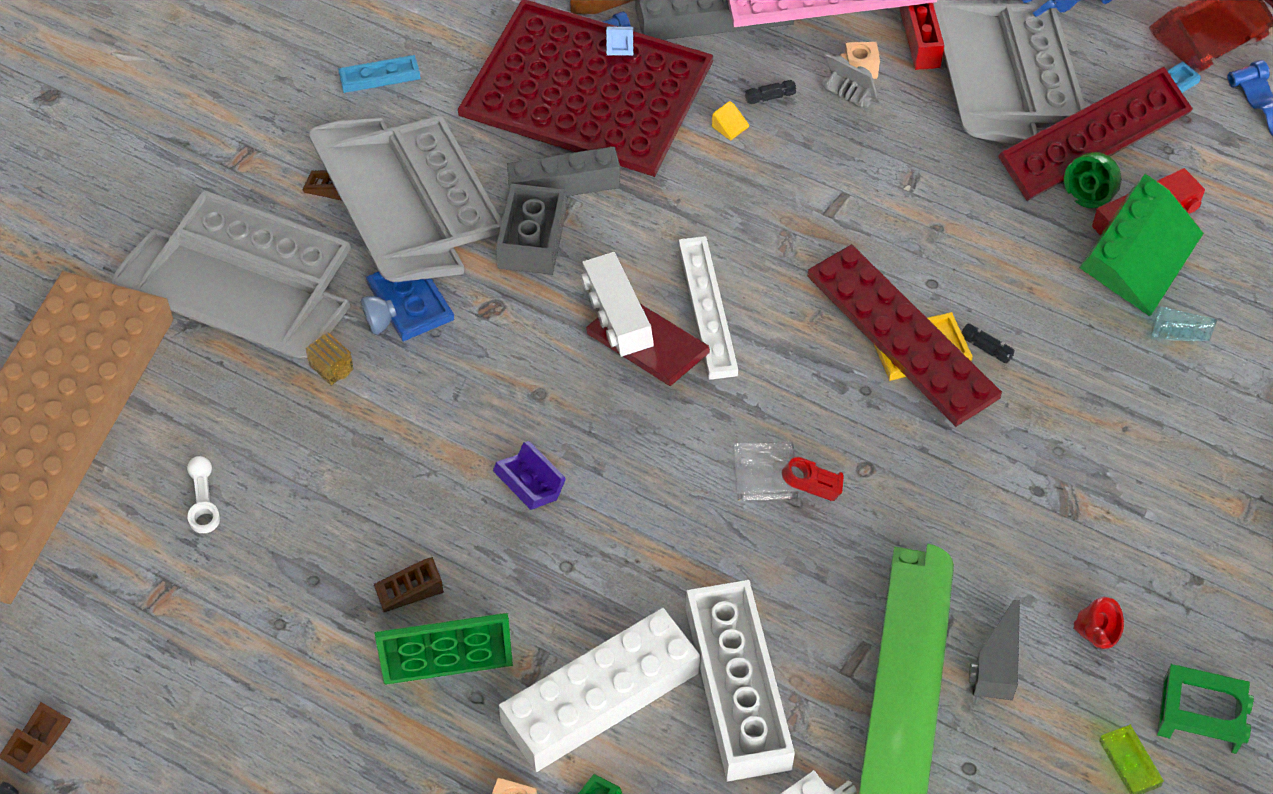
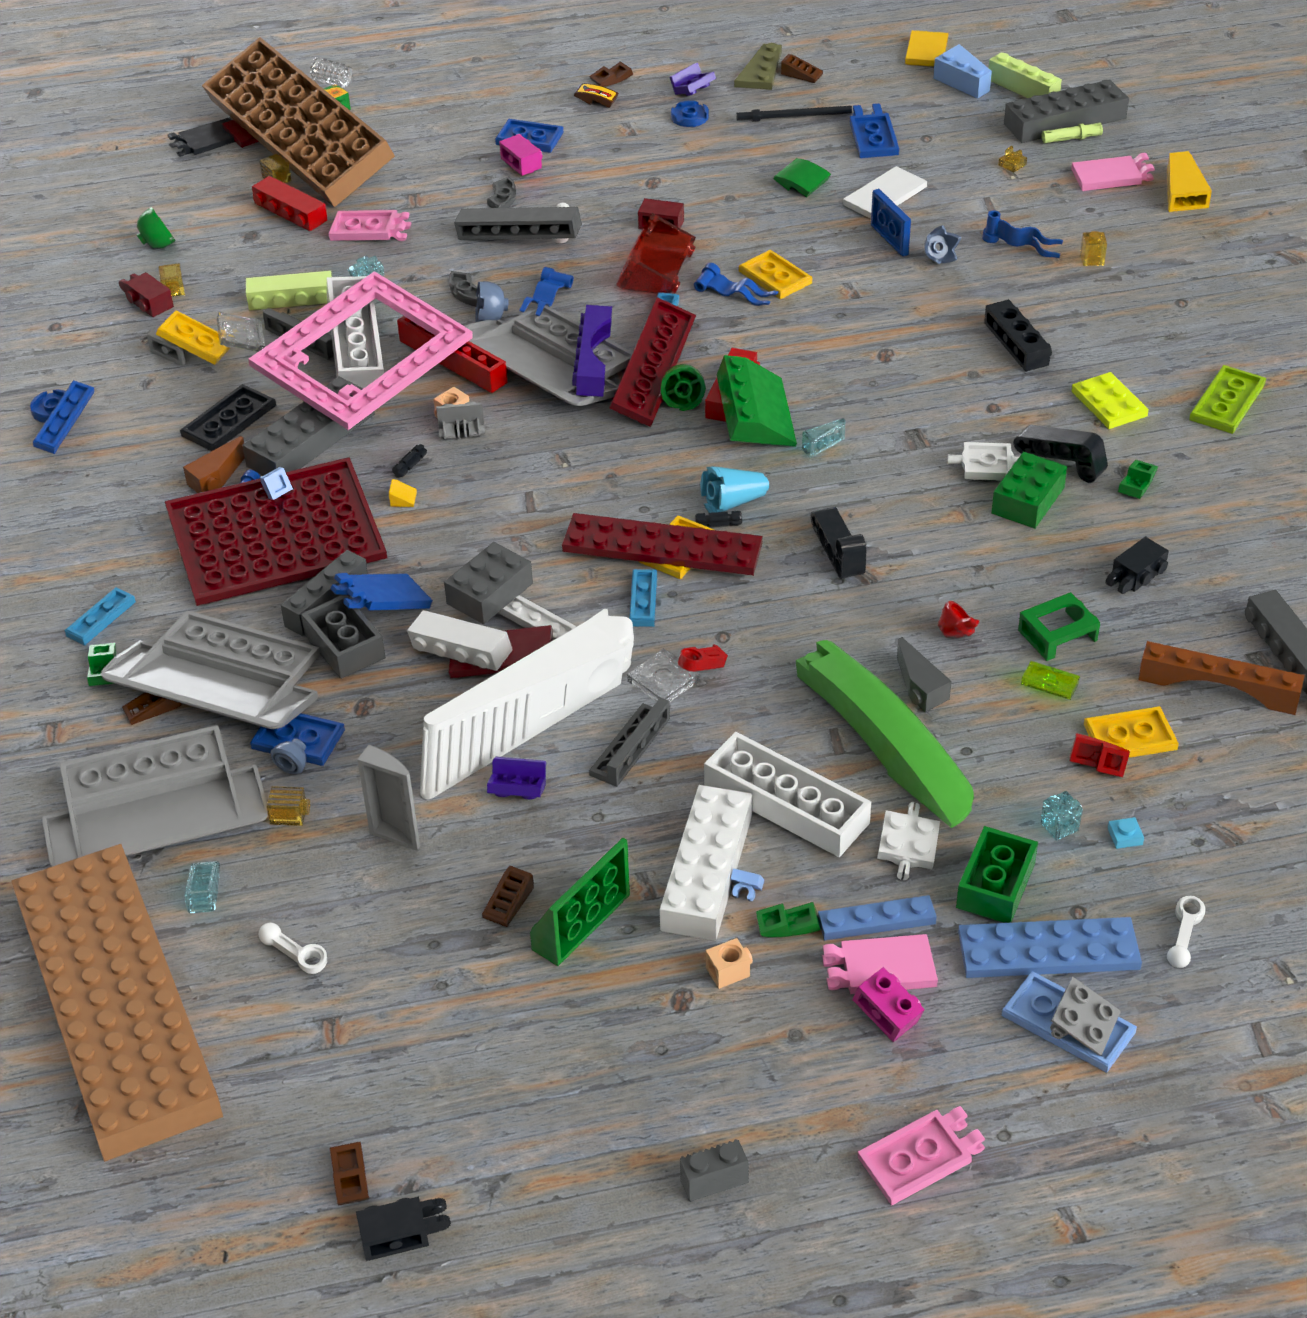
camera: 40 degrees left, 10 degrees down
(191, 397) = (202, 890): none -> clear light blue slope
(337, 110) = (98, 657): none -> green slope
(382, 413) = (388, 797): none -> light grey slope
(602, 208) = (381, 591): none -> blue tile
(604, 404) = (523, 700): none -> white brick
(616, 737) = (748, 881): none -> light blue tile
(667, 515) = (634, 746): none -> dark grey fence
(697, 263) = (488, 582): none -> dark grey brick
(832, 376) = (643, 598): none -> dark azure tile
(1029, 320) = (731, 487): none -> medium azure cone
(1072, 61) = (588, 369): none -> dark purple arch
(1073, 450) = (844, 550): none -> black beam

